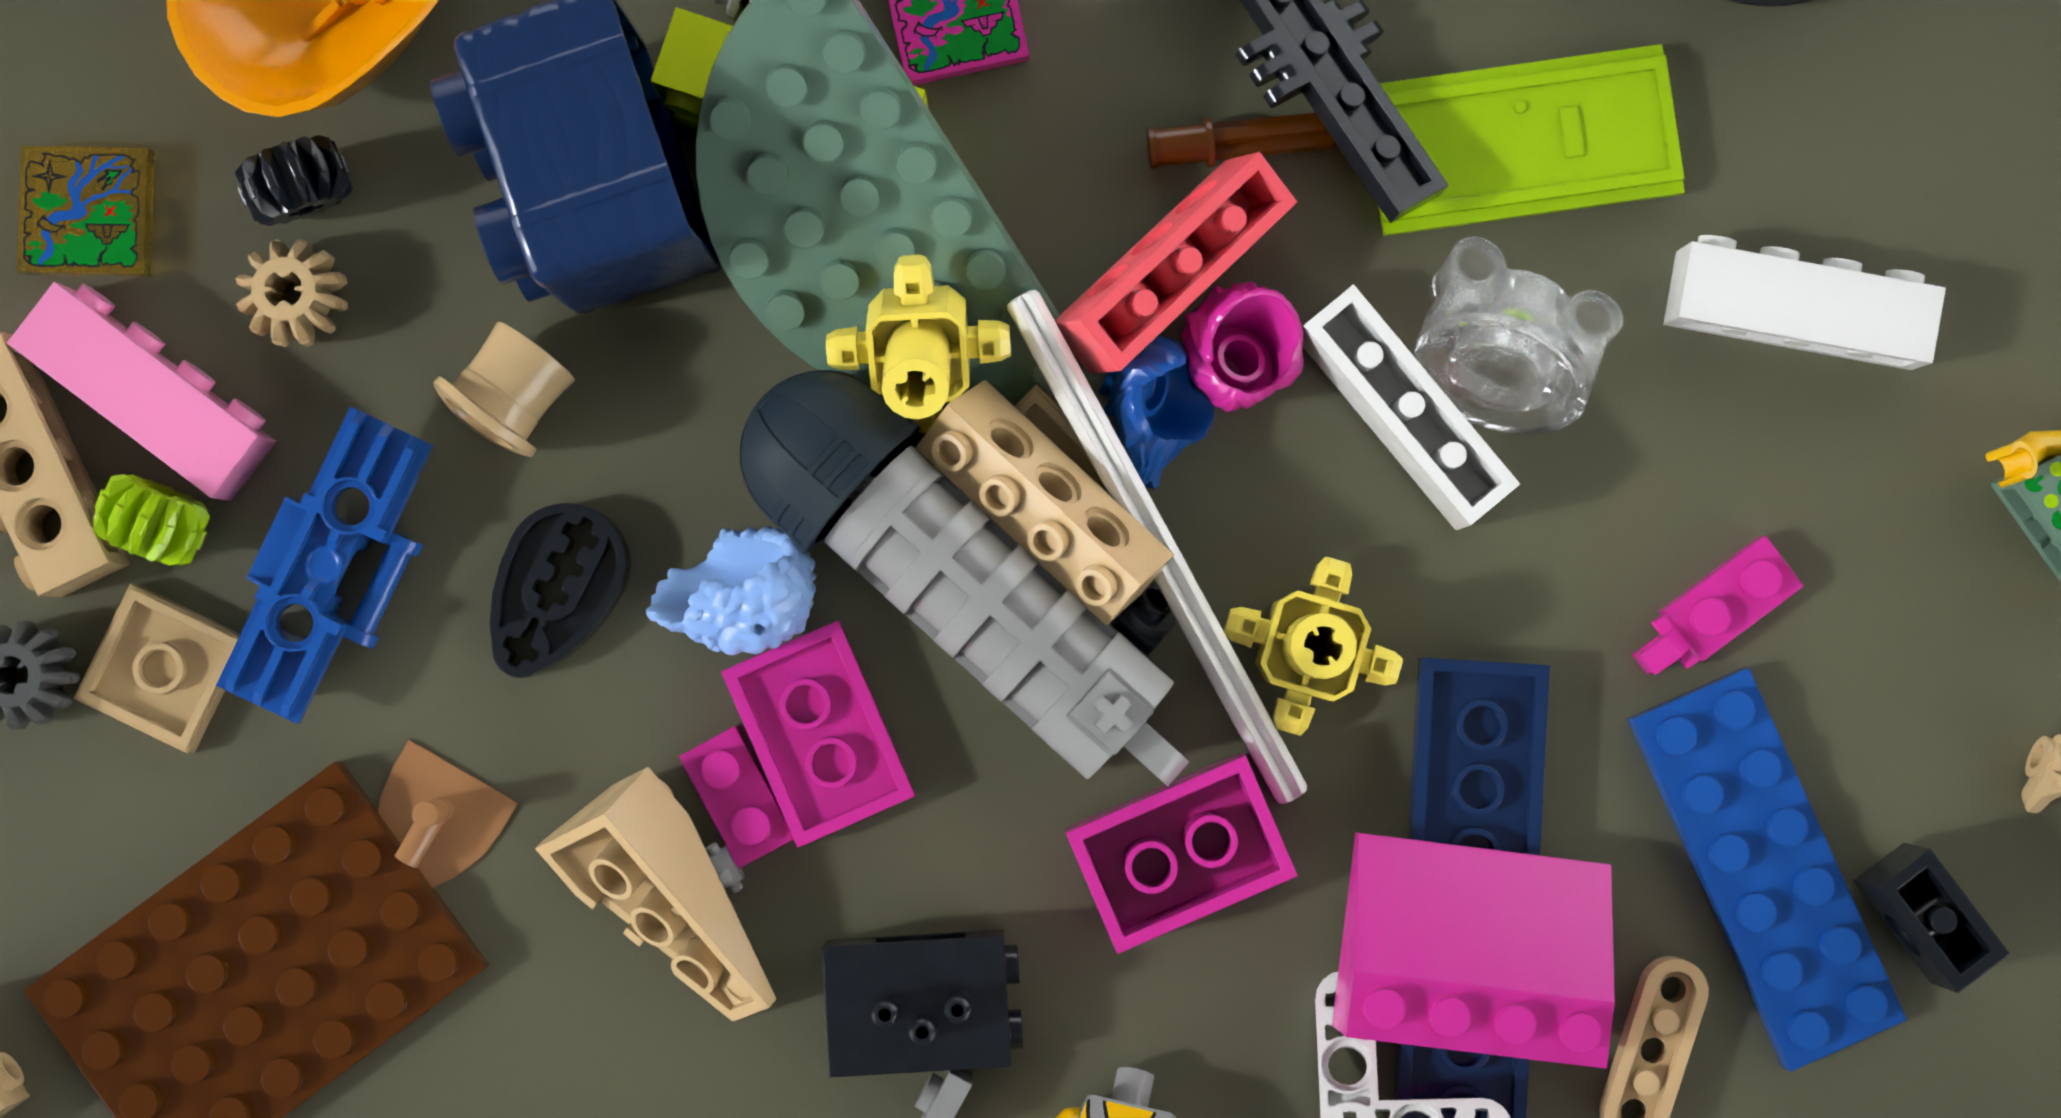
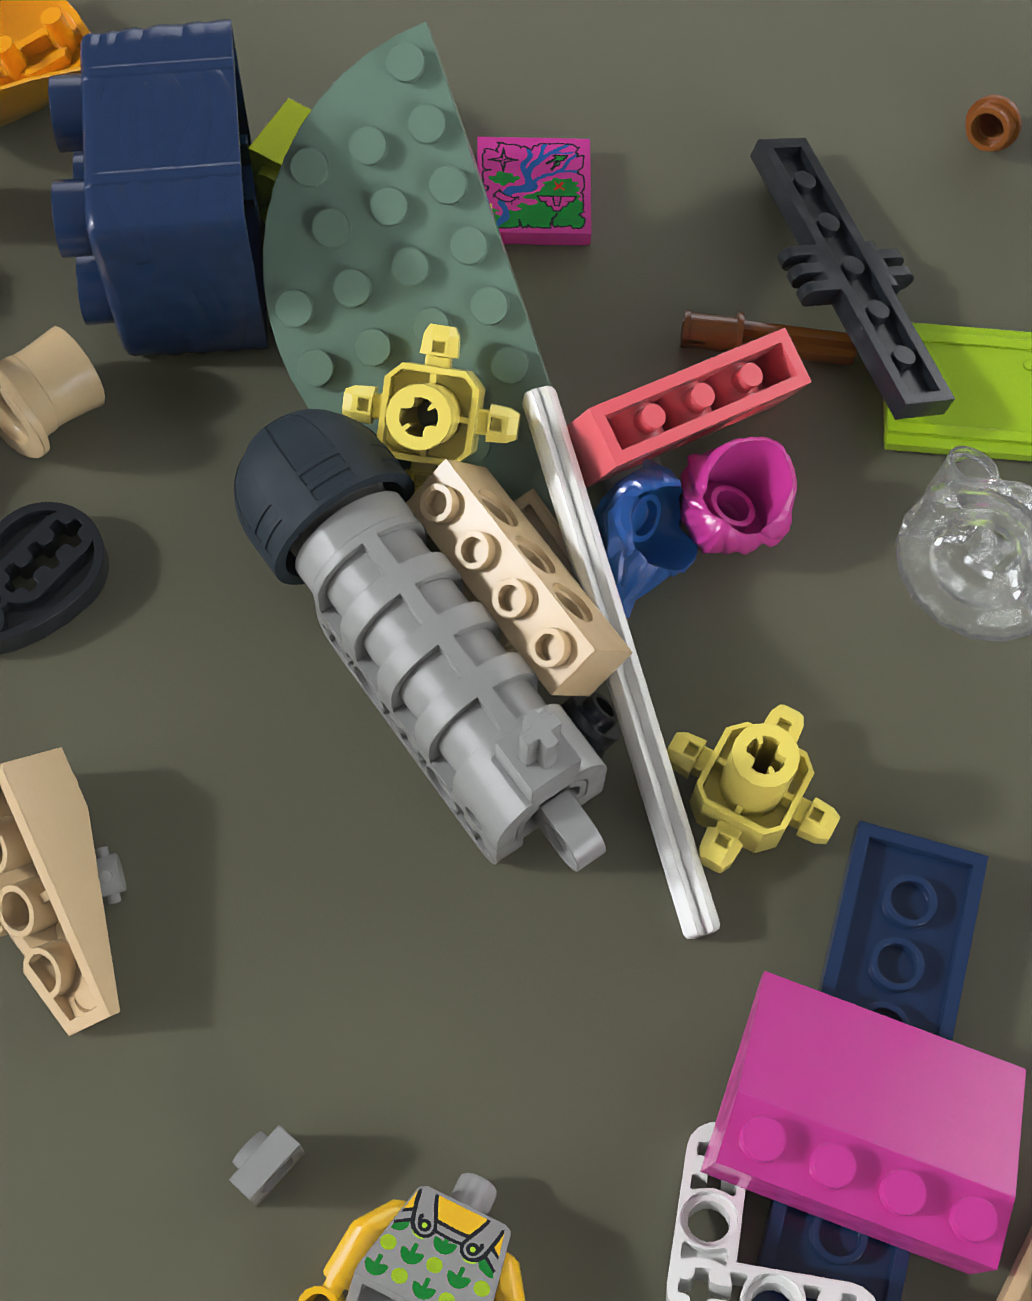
camera: 10 degrees right, 20 degrees down
(737, 796) = (142, 811): dark pink plate -> none
(744, 594) = (204, 618): light blue piece -> none
(818, 733) = (240, 766): dark pink plate -> none
(920, 1003) = (268, 1053): black piece -> none
(1180, 852) = (576, 951): dark pink brick -> none
(1407, 409) = (884, 586): white brick -> none

